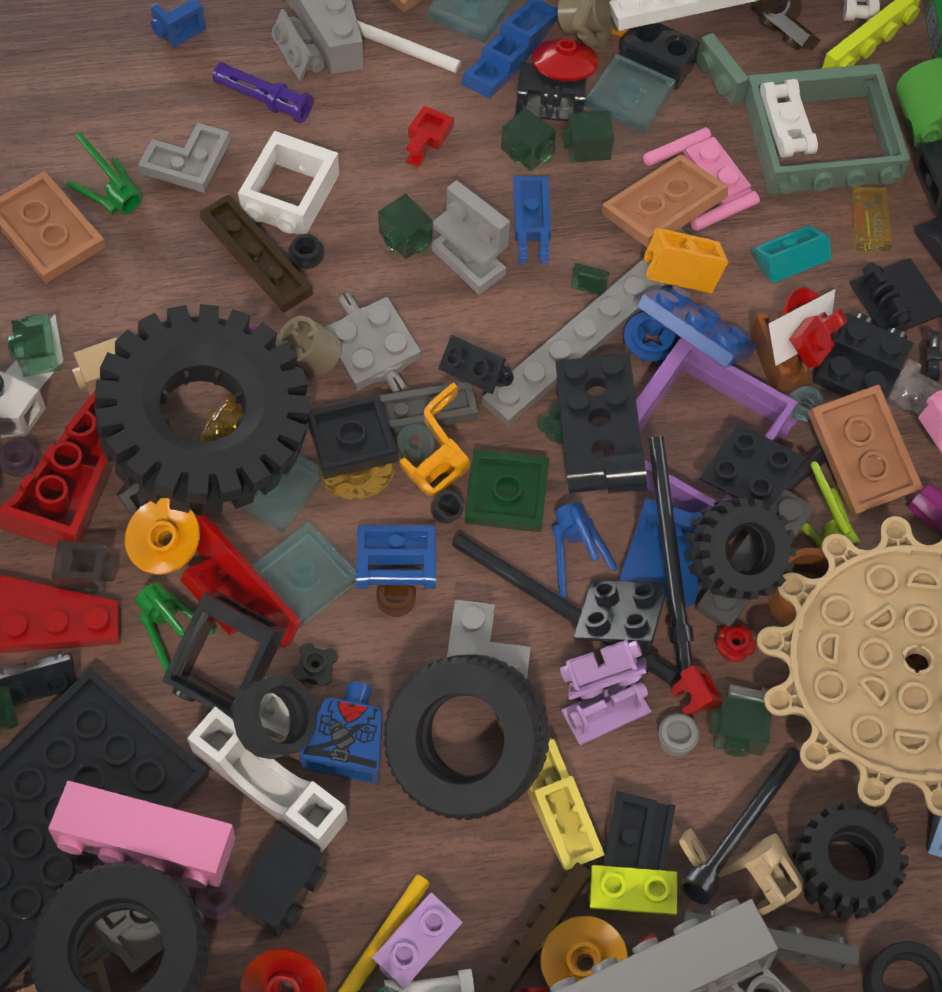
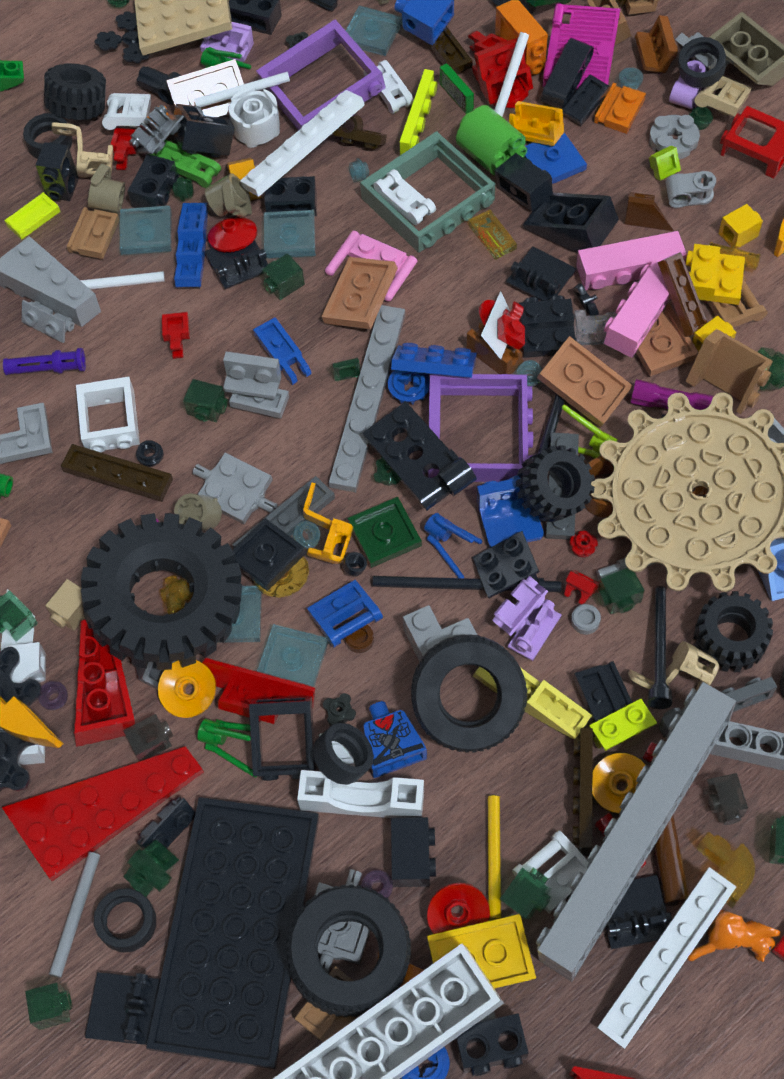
camera: 25 degrees left, 0 degrees up
(142, 833) = (307, 873): bright pink brick -> none
(416, 940) = (517, 834): lavender hinge -> none
(475, 365) = (312, 464): black hinge -> none
(528, 140) = (246, 300): clear green brick -> none
(680, 632) = (548, 556): black bar -> none
(685, 260) = (399, 323): light orange hinge -> none
(722, 69) = (338, 187): sand green plate -> none
(752, 466) = (526, 430): black hinge -> none
(759, 62) = (358, 170): none -> clear light blue plate
(792, 253) = (459, 282): teal slope -> none

